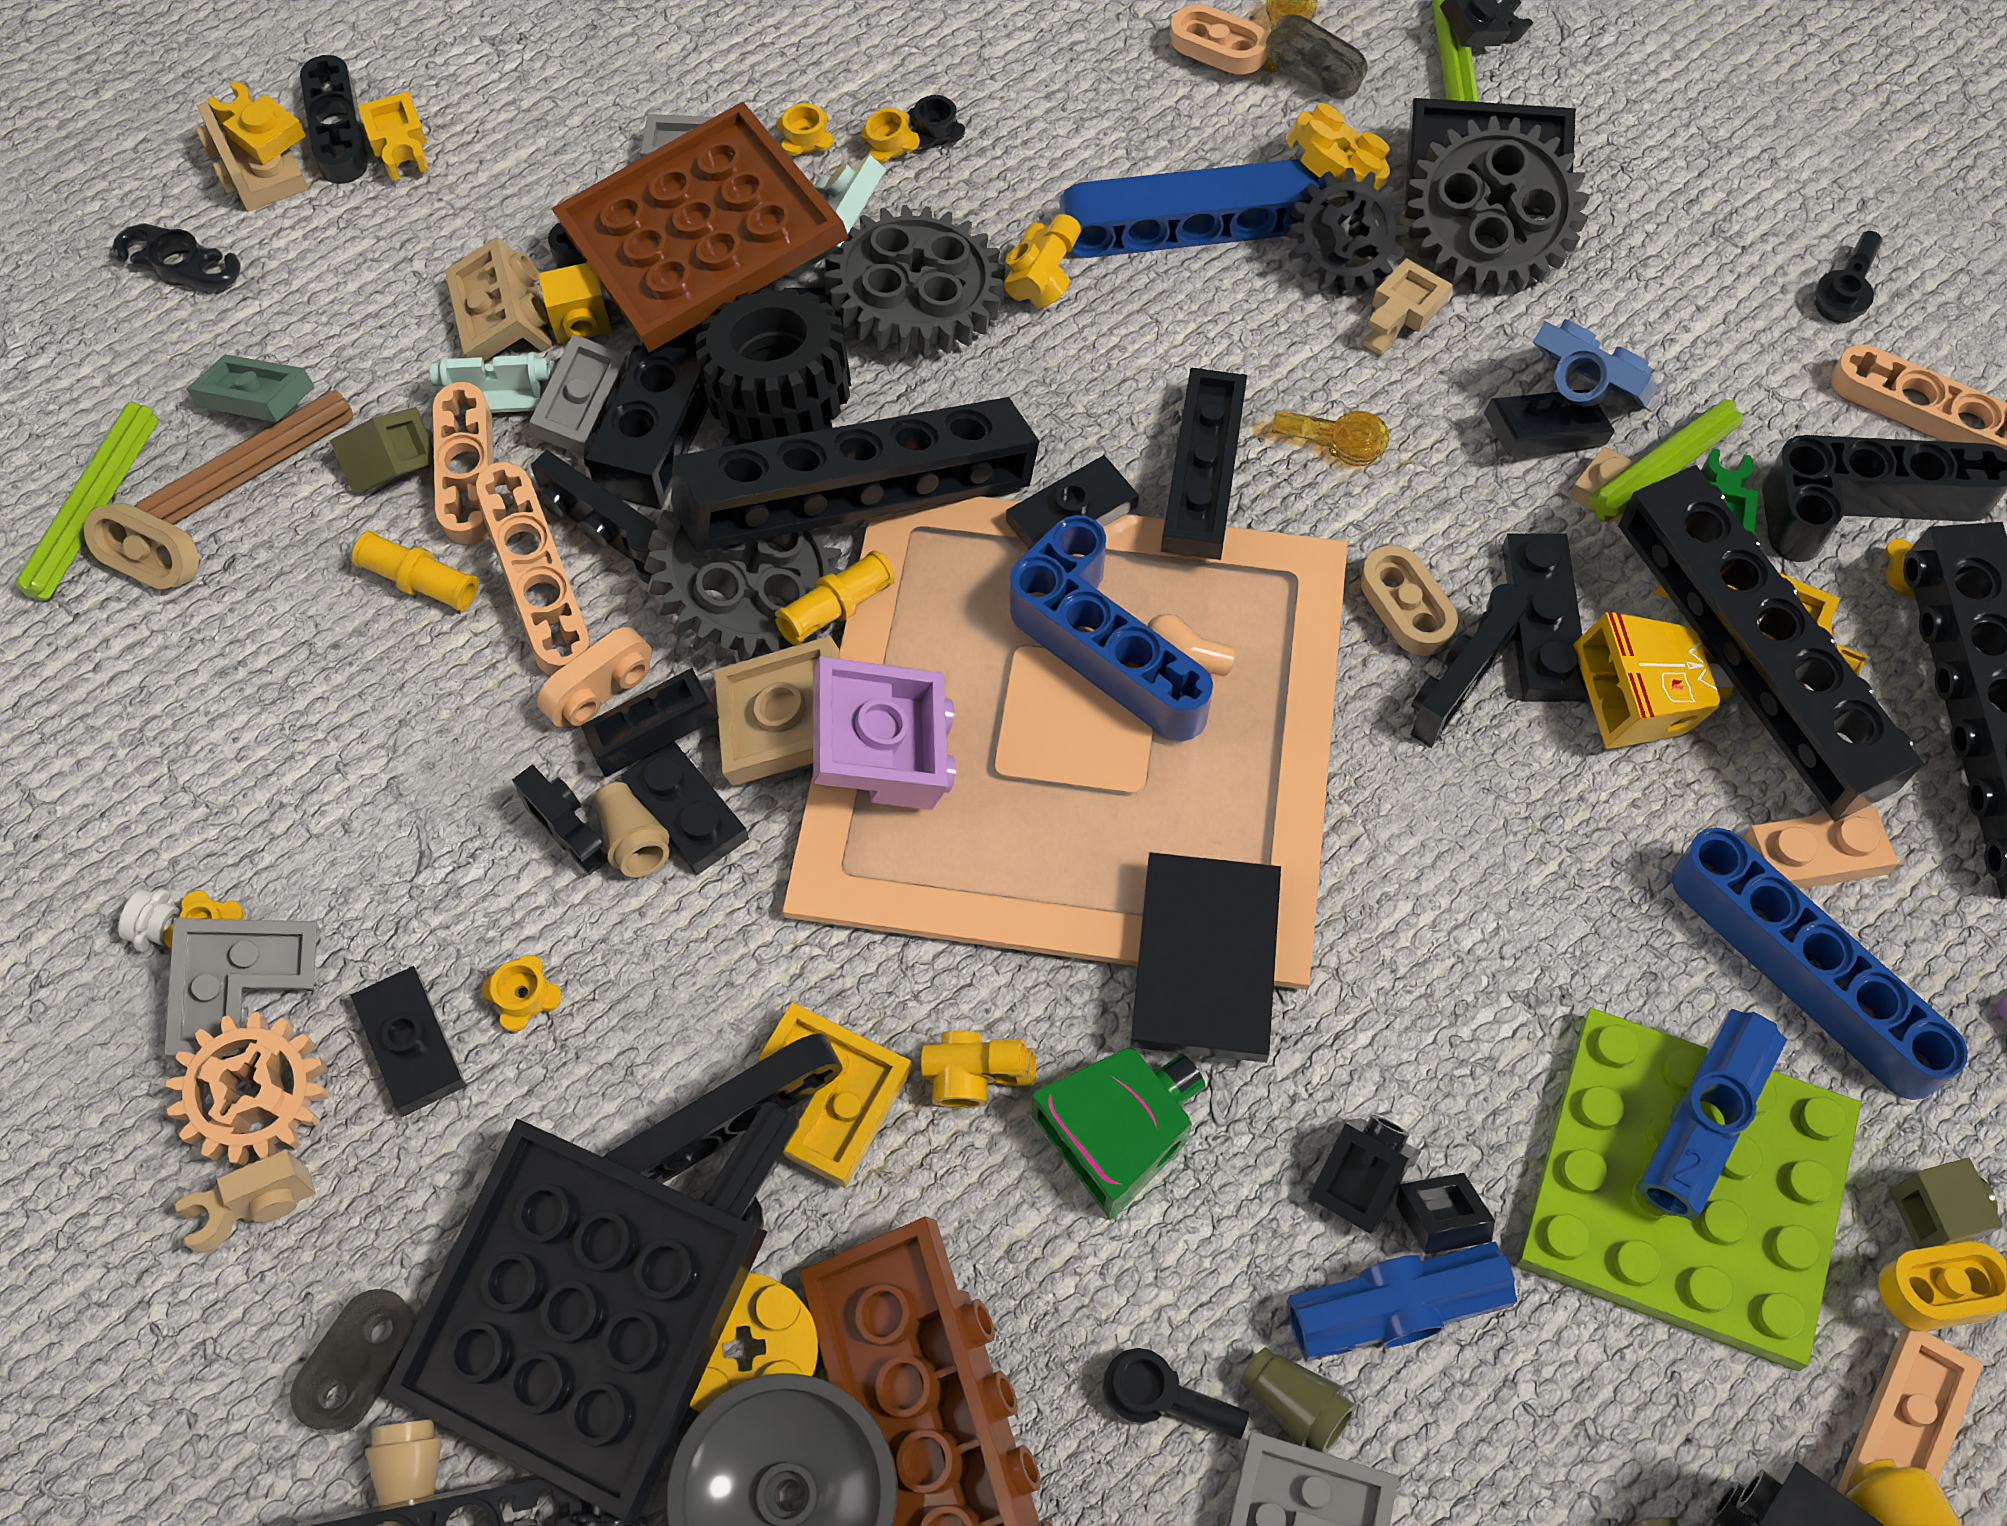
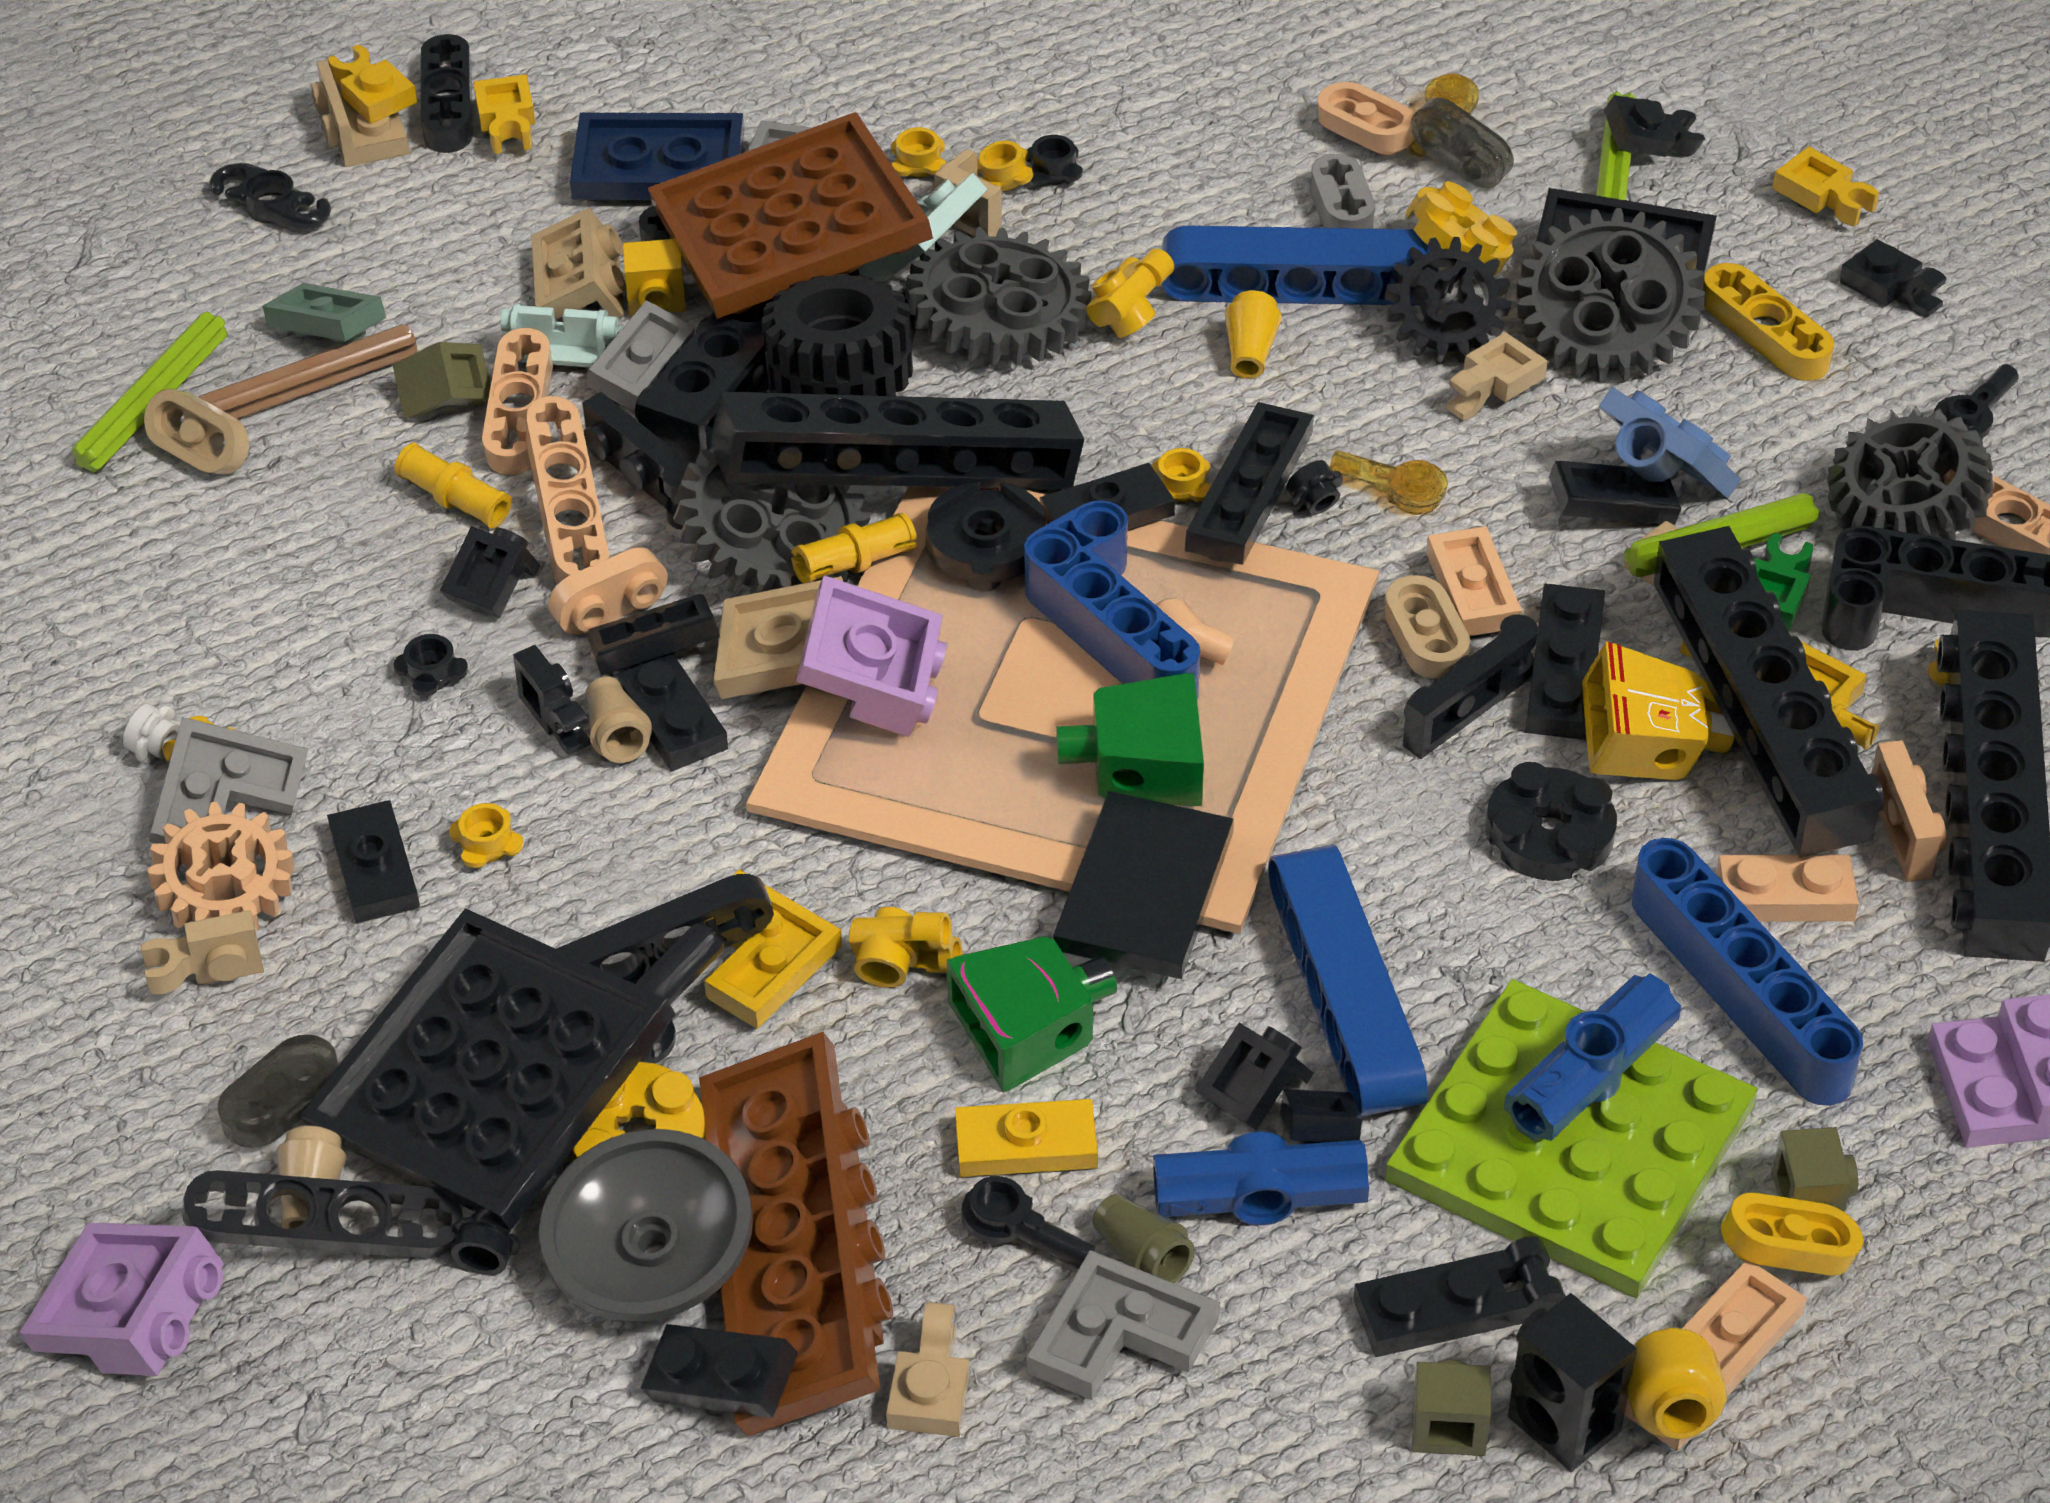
camera: 10 degrees right, 15 degrees down
(418, 777) = (430, 664): none -> black plate
(468, 669) = (488, 570): none -> black bracket
(544, 161) = (629, 152): none -> dark blue plate
(854, 149) = (987, 209): none -> tan bracket
(960, 589) = (982, 558): none -> black plate
(1138, 447) = (1183, 474): none -> yellow plate
(1148, 1281) = (1026, 1137): none -> yellow plate
(1164, 286) = (1251, 330): none -> yellow cone
(1172, 789) = (1142, 740): none -> green torso
(1224, 124) = (1351, 195): none -> light grey beam
(1264, 455) = (1314, 487): none -> black plate
(1432, 1039) = (1347, 980): none -> blue beam
(1441, 538) = (1473, 578): none -> light nougat plate
(1598, 780) = (1557, 793): none -> black plate
(1608, 178) = (1794, 346): none -> yellow beam
(1626, 1412) = (1456, 1298): none -> black plate
(1652, 56) = (1820, 182): none -> yellow plate
(1735, 146) = (1889, 274): none -> black plate
(1816, 348) = (1909, 465): none -> dark grey gear
(1944, 774) = (1906, 814): none -> light nougat plate

